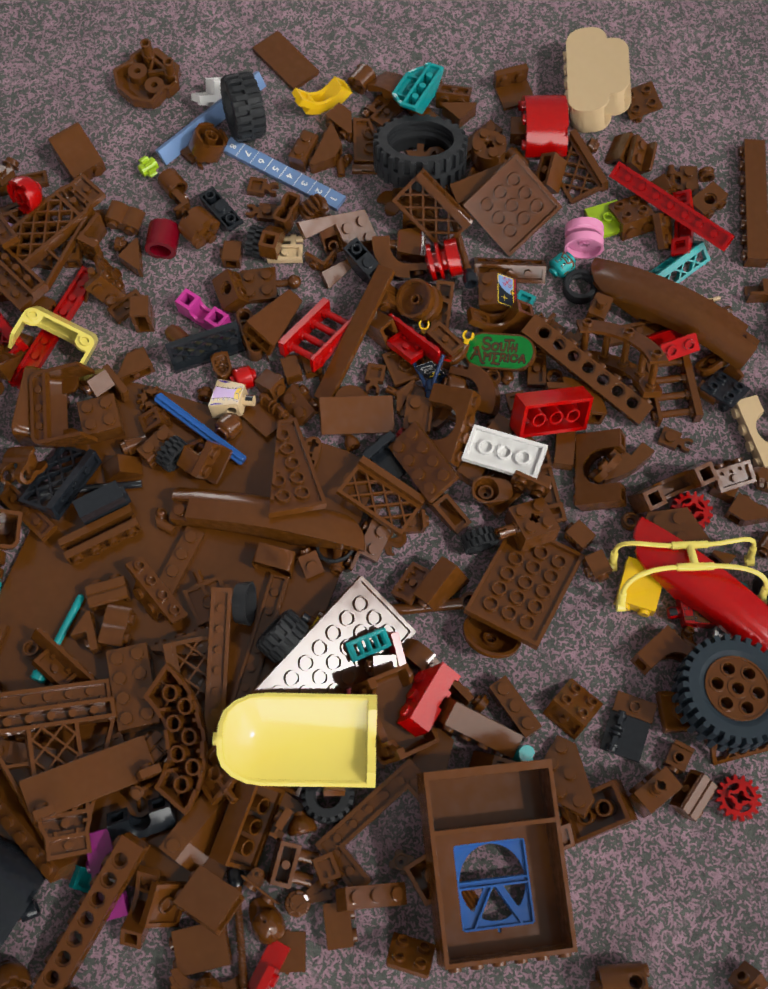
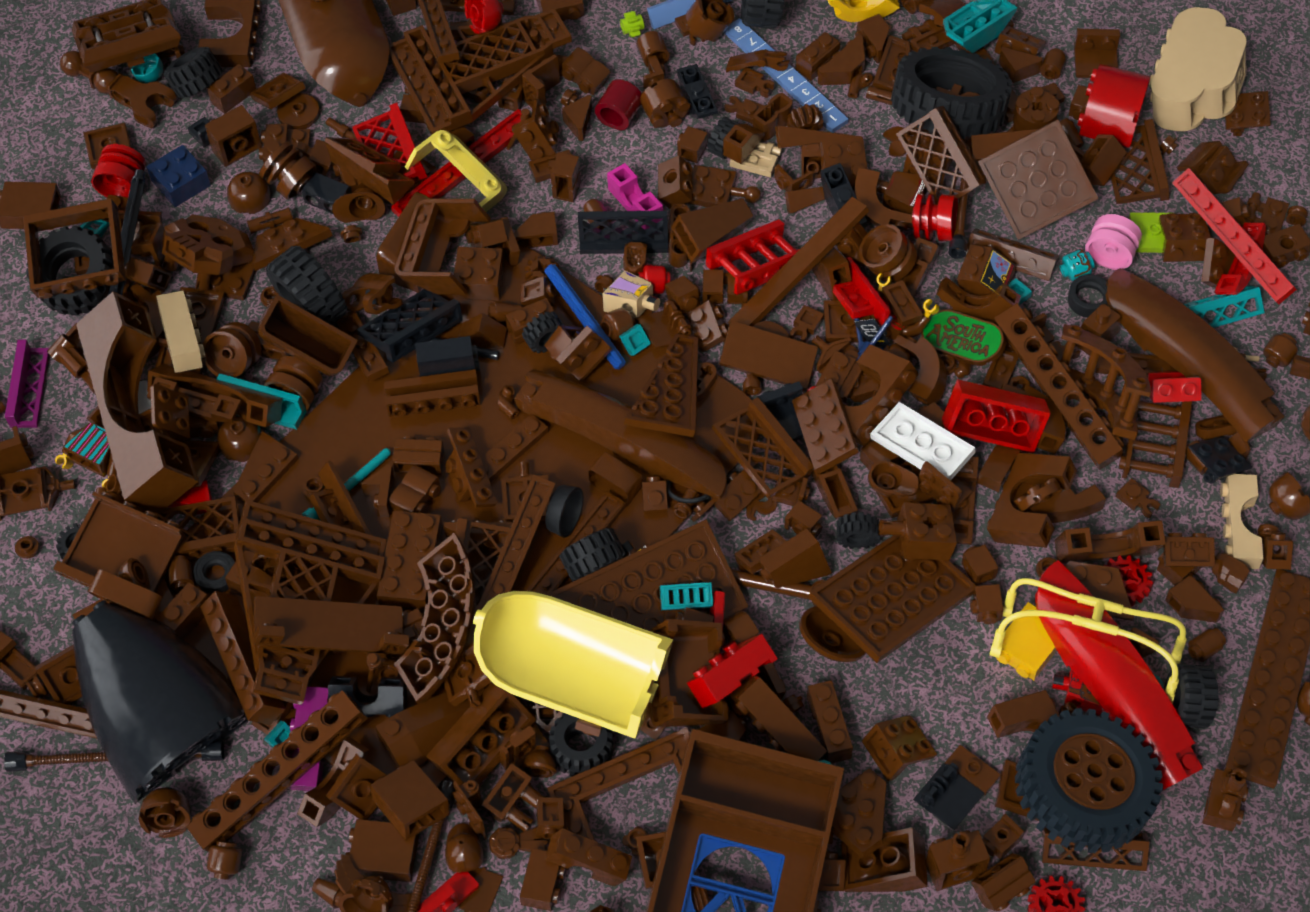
camera: 20 degrees right, 10 degrees down
(247, 435) = (635, 339): none -> teal plate
(259, 166) = (759, 58): none -> reddish brown arm
(433, 544) = (802, 518): none -> reddish brown brick
(484, 105) = (1053, 64): none -> reddish brown brick
(734, 286) = (1280, 350): none -> reddish brown head

